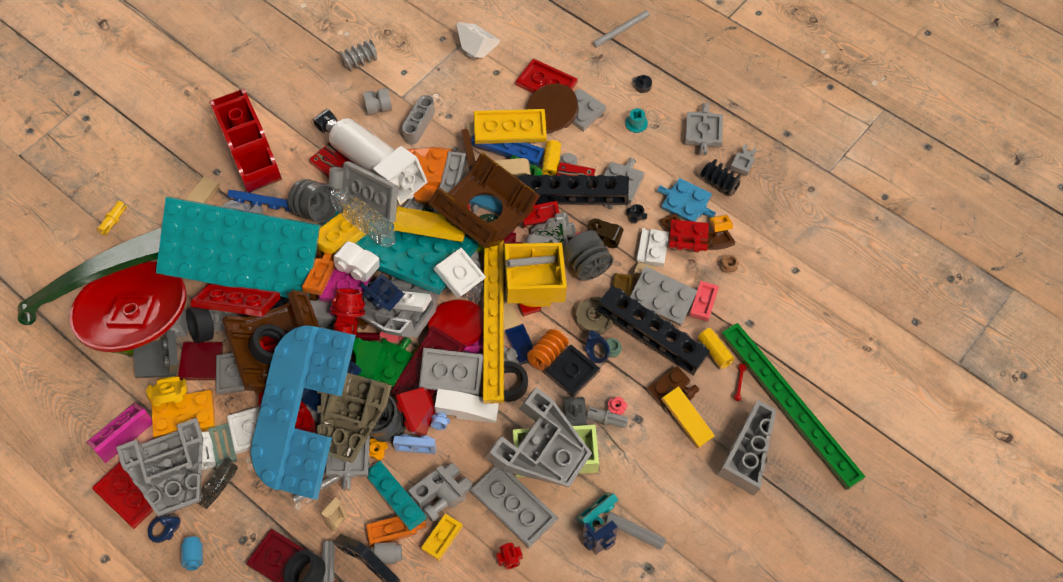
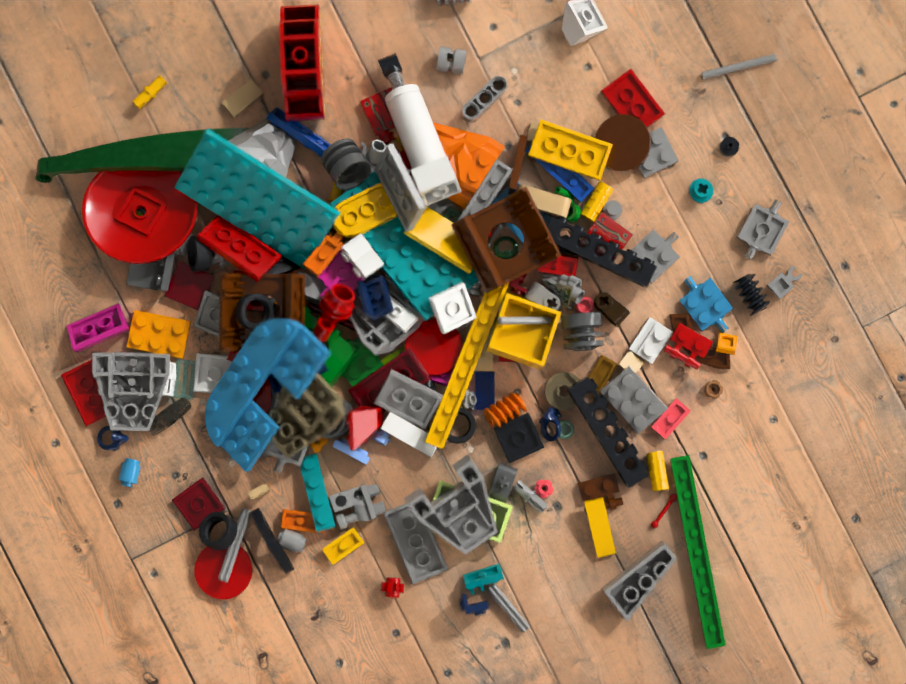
camera: 25 degrees right, 25 degrees up
(167, 390) = (150, 317): yellow plate -> none
(363, 217) = (373, 181): clear piece -> none
(636, 209) = (655, 293): black plate -> none

